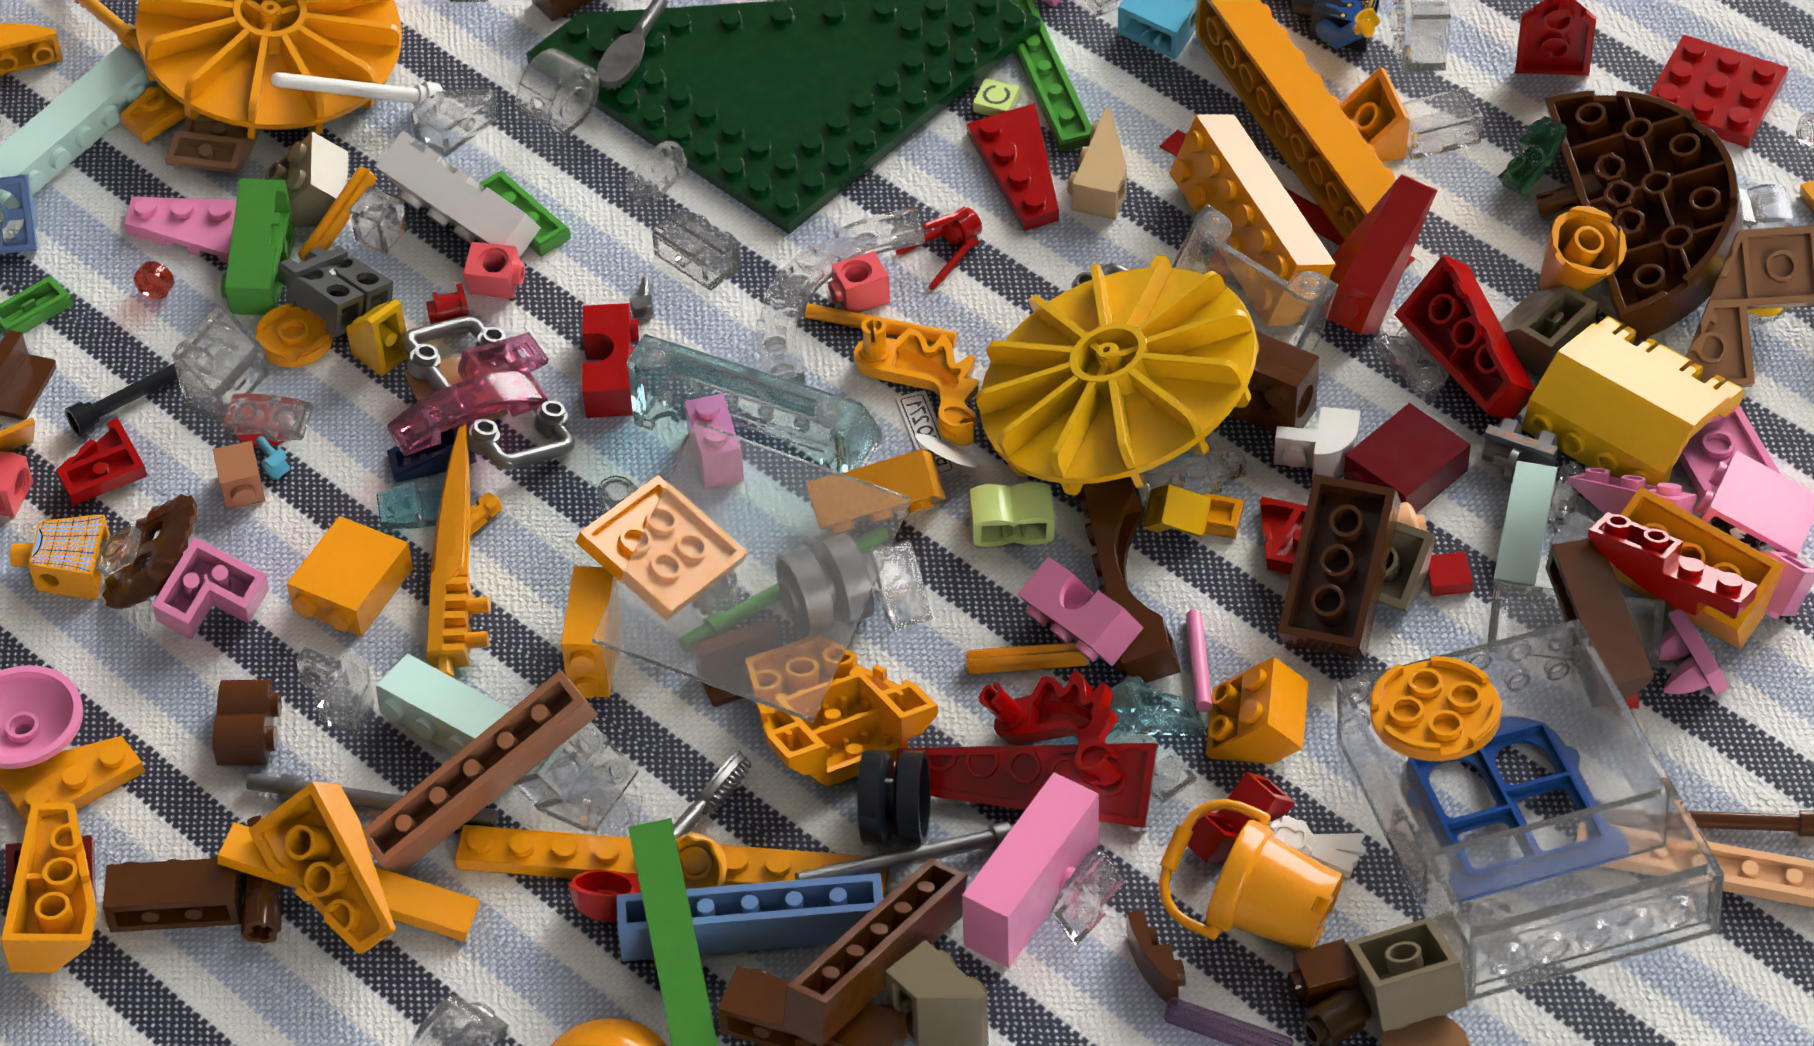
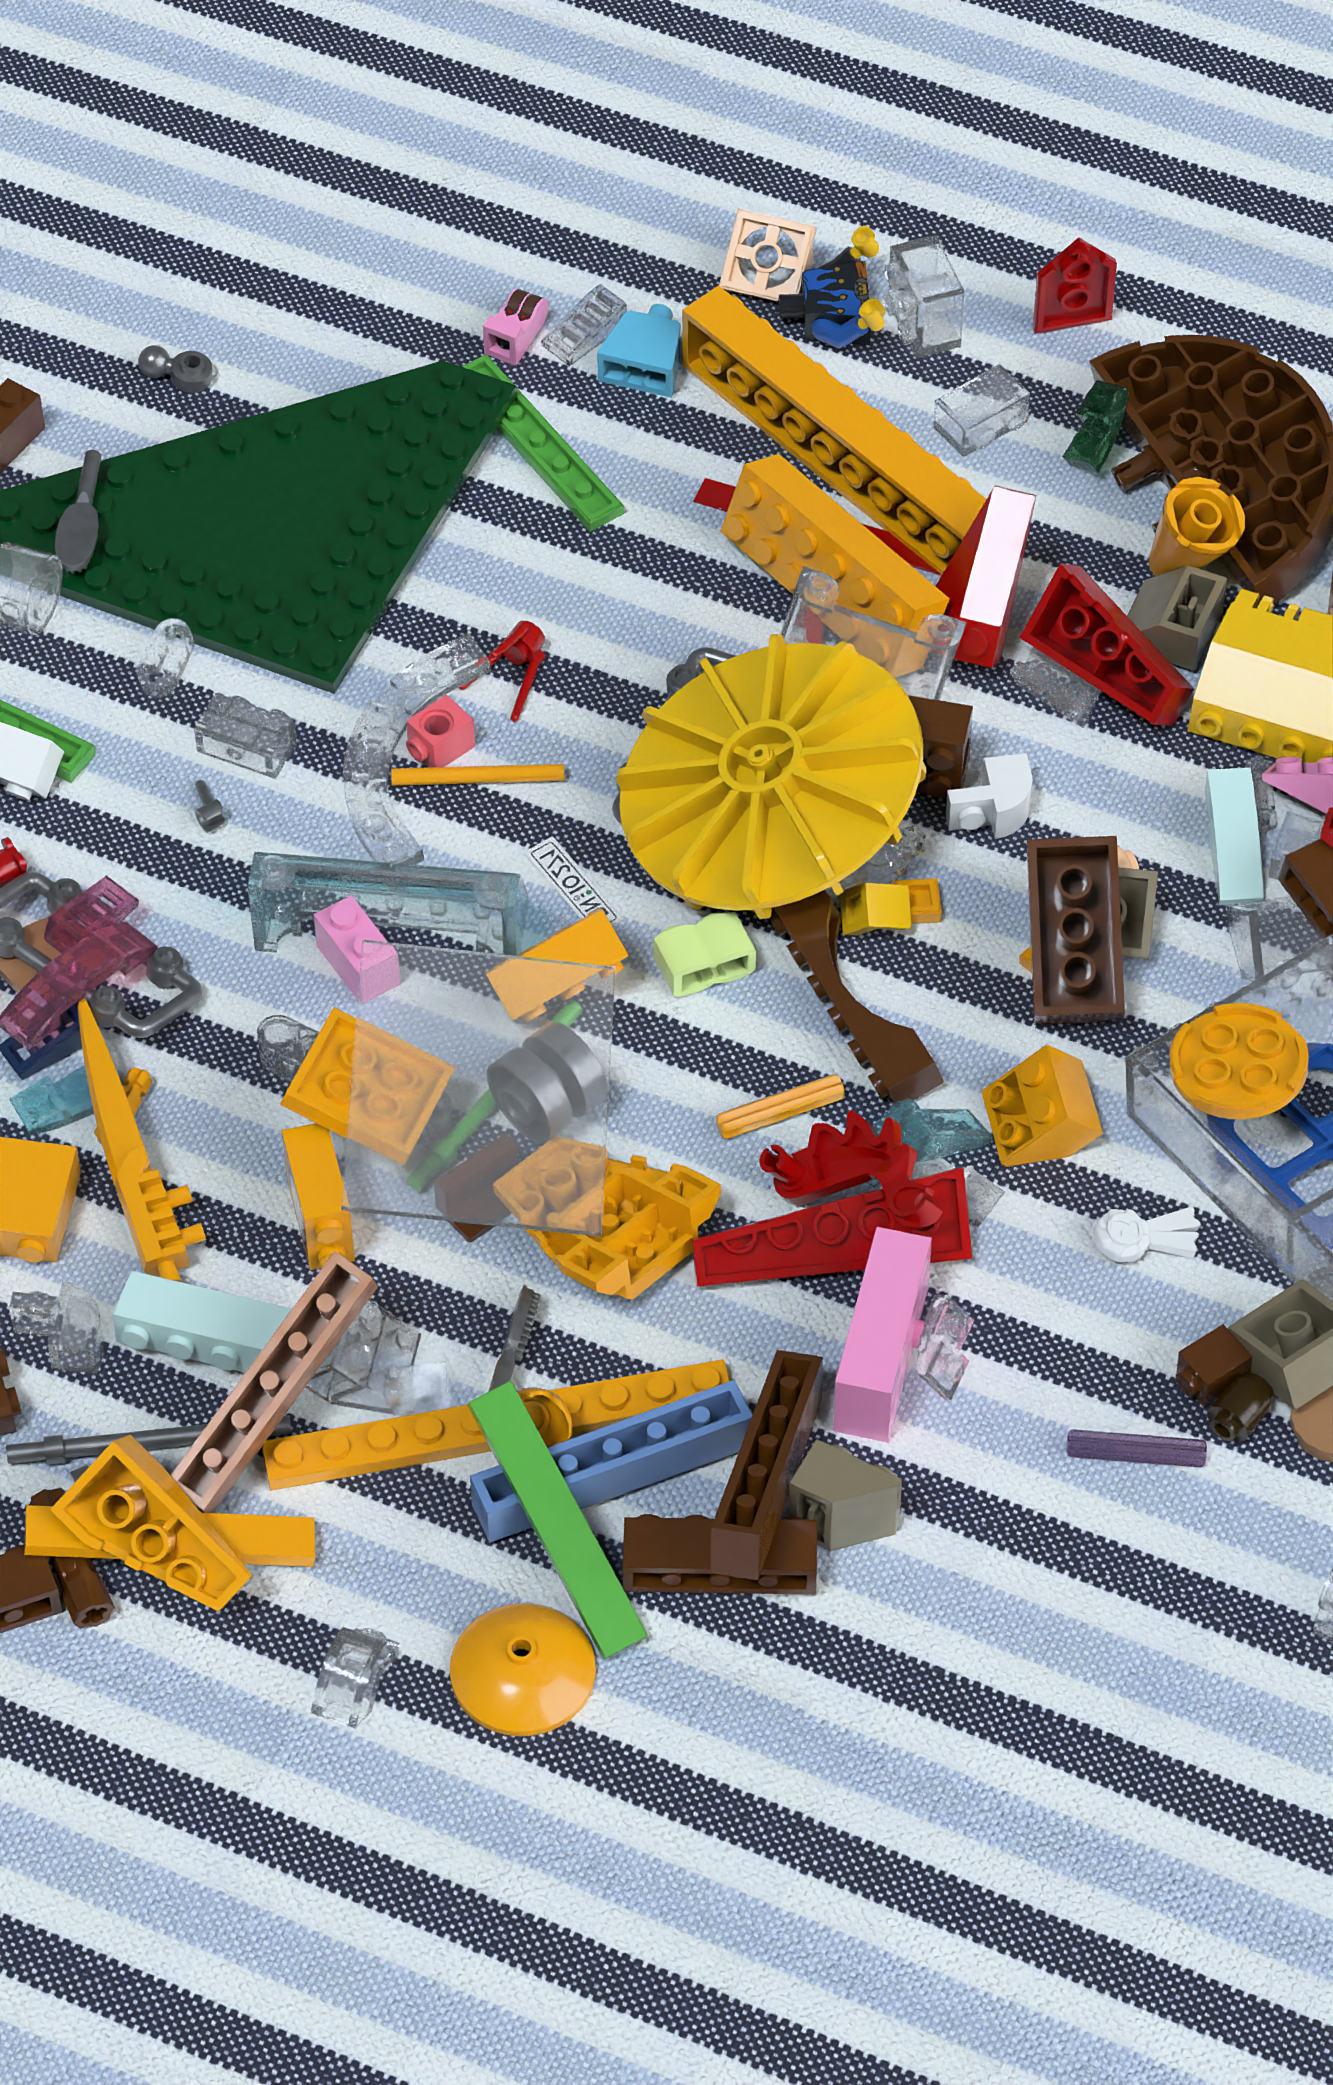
camera: 20 degrees left, 5 degrees up
(484, 259) = (23, 798): coral brick -> none
(596, 891) = (444, 1474): red piece -> none
(609, 338) = (194, 858): red arch -> none
(894, 797) = (719, 1293): black wheel -> none
(902, 588) = (630, 1069): clear slope -> none
(913, 855) = (824, 1307): flat silver bar -> none
(931, 368) = (530, 810): light orange animal -> none
(946, 450) = (609, 900): white sticker -> none
(995, 98) = (499, 487): yellowish green tile -> none
(1018, 163) = (552, 555): red wing -> none
(1098, 626) = (854, 1058): bright pink arch -> none
(1102, 172) = (651, 545): tan slope -> none
(1154, 960) = (1041, 1399): reddish brown slope -> none
(1199, 662) = (957, 1065): bright pink bar -> none
(1218, 831) = (1065, 1227): red brick -> none
(1262, 885) = (1123, 1289): light orange piece -> none
(1281, 532) = (998, 905): red wing -> none
(1379, 116) = (921, 412): light orange slope -> none
(1411, 456) = (1089, 792): dark red brick -> none
(1449, 574) = (1176, 908): red tile -> none
(1506, 445) = (1193, 758): flat silver hips -> none
(1721, 87) = (1252, 303): red plate -> none

